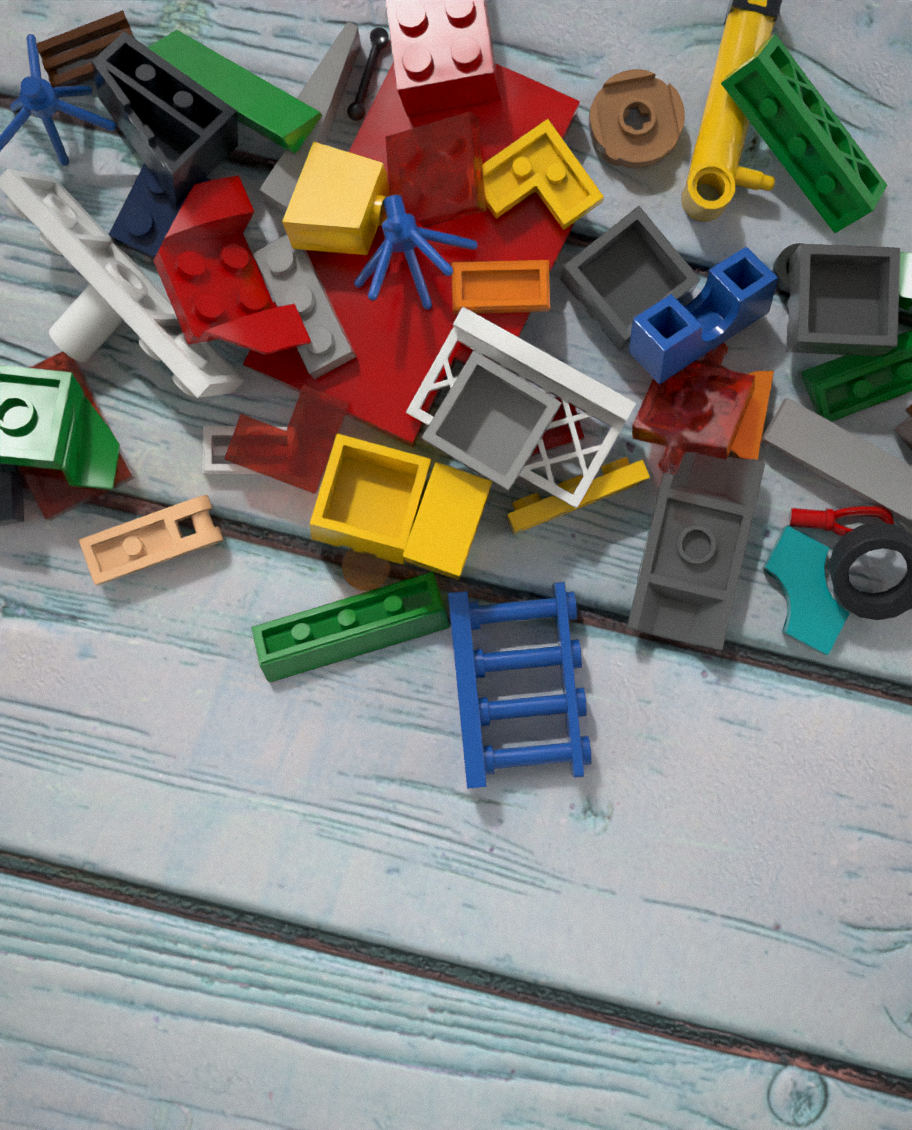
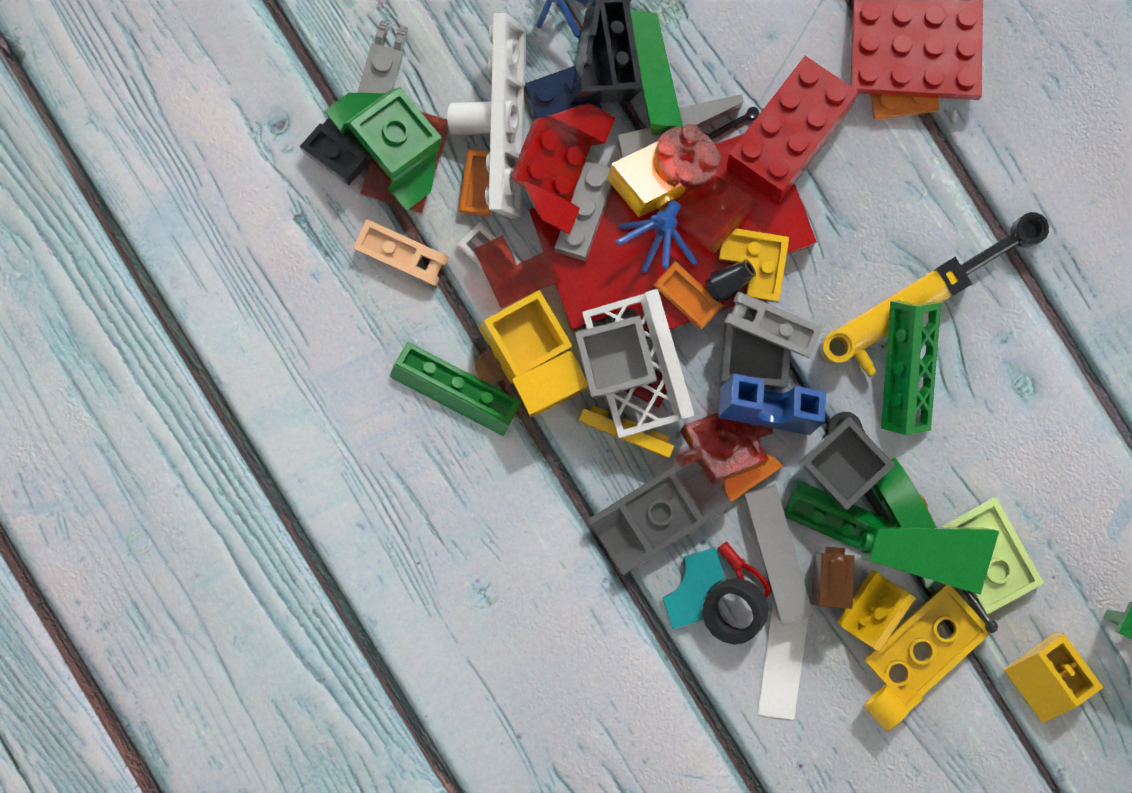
camera: 40 degrees right, 0 degrees up
(157, 389) = (474, 184): none -> orange tile
(349, 118) = (694, 143): none -> clear red plate
(479, 711) = (497, 465): blue fence -> none
(530, 224) = (729, 280): none -> black cone
(625, 225) = (774, 325): none -> light grey plate
(651, 97) = (820, 282): medium nougat plate -> none

